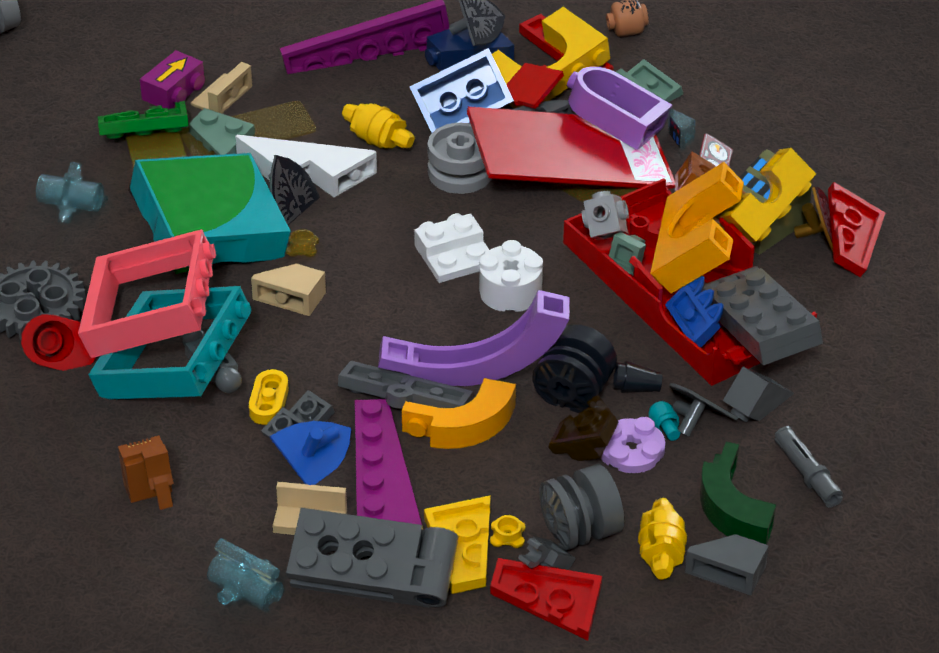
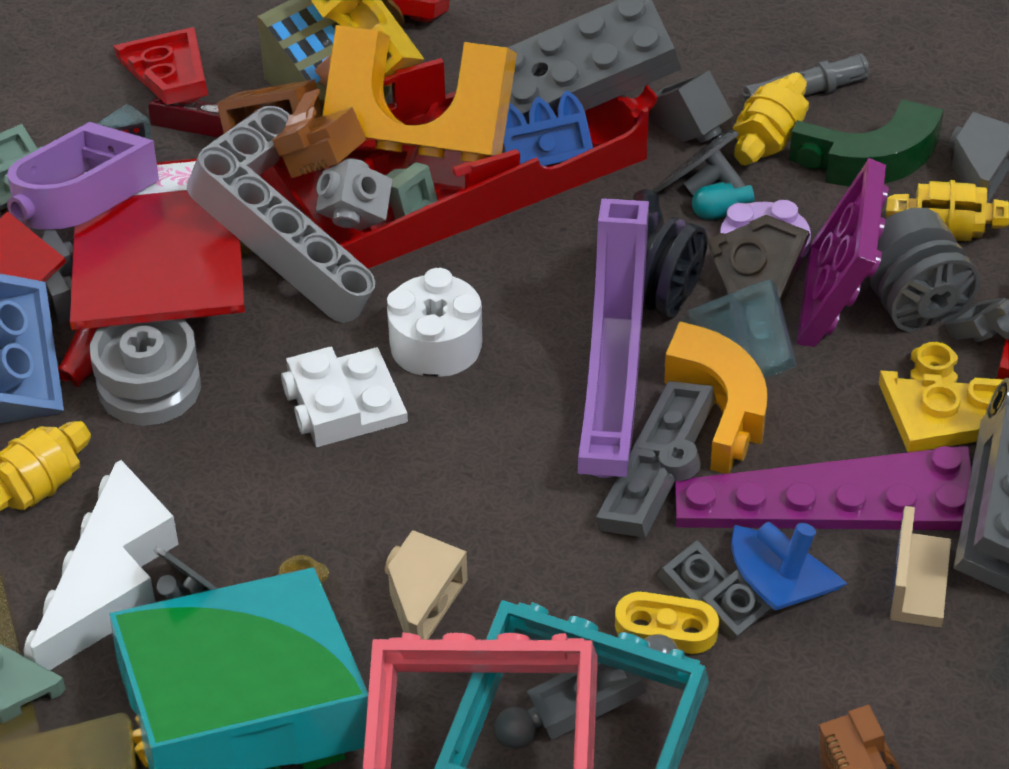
camera: 85 degrees left, 5 degrees up
(520, 433) = (754, 322): none -> clear light blue wing
(562, 449) = (843, 254): none -> magenta plate
(582, 181) = (231, 190): none -> light grey beam
(643, 189) = (318, 142): none -> dark orange piece
(747, 141) = (167, 65): none -> red wing
(756, 437) = (769, 118): none -> yellow piece

